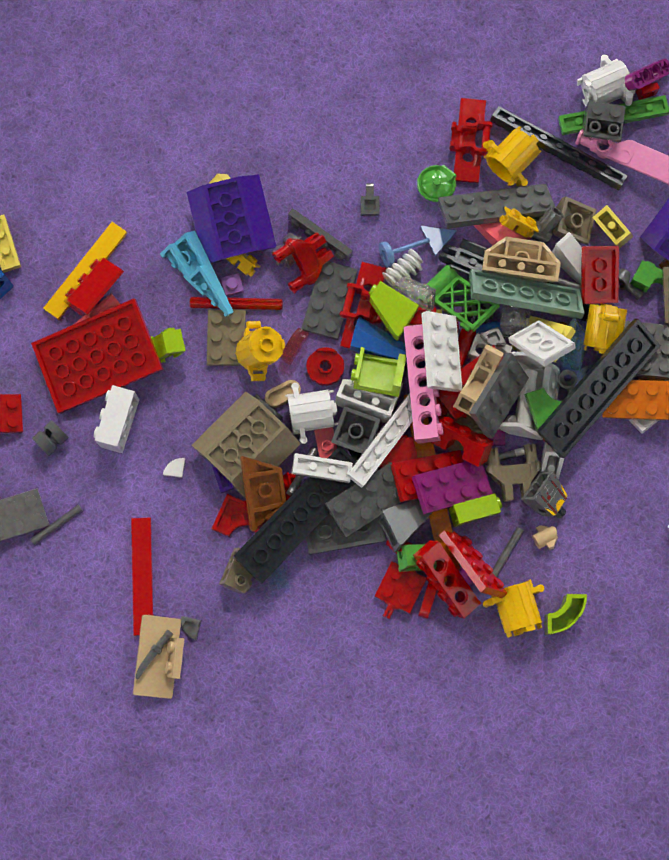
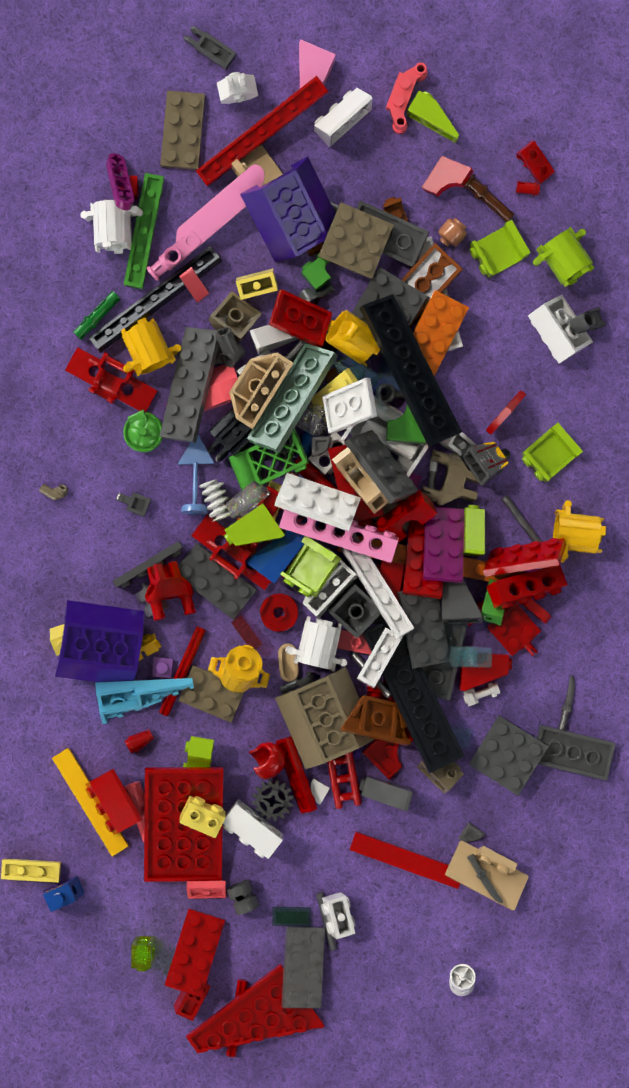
camera: 65 degrees left, 10 degrees up
(44, 402) = (206, 889): none -> coral plate
(48, 491) = (291, 916): none -> tile
(48, 672) = (462, 980): none -> white wheel
(61, 534) = (338, 915): none -> white brick
(111, 365) = (202, 816): none -> light yellow brick
(157, 290) = (138, 741): none -> red cone
(158, 428) = (270, 807): none -> dark grey gear
(181, 441) = (296, 776): none -> red plate
(187, 411) = (270, 759): none -> red piece
(198, 528) = (386, 792): none -> dark grey slope
(199, 491) = (351, 777): none -> red bar
(279, 630) = (508, 755): none -> dark grey plate
(307, 692) = (576, 752): none -> dark grey plate
(320, 574) = (471, 697): none -> white bar
(348, 132) = (55, 493): none -> dark tan arm
(350, 669) = (566, 709): none -> flat silver piece
(351, 571) = (475, 676): none -> red slope
(358, 550) = (470, 656): none -> clear light blue brick
(513, 217) = (223, 367): yellow hinge -> none
(521, 105) = (96, 315): none -> green pin
(545, 537) = (522, 477): tan piece -> none
(568, 613) = (600, 490): lime brick -> none
(580, 555) = (550, 453): none -> lime panel
(586, 173) = (194, 284): none -> coral piece
(600, 494) = (505, 412): none -> red tile
(603, 121) = (151, 246): dark grey slope -> none

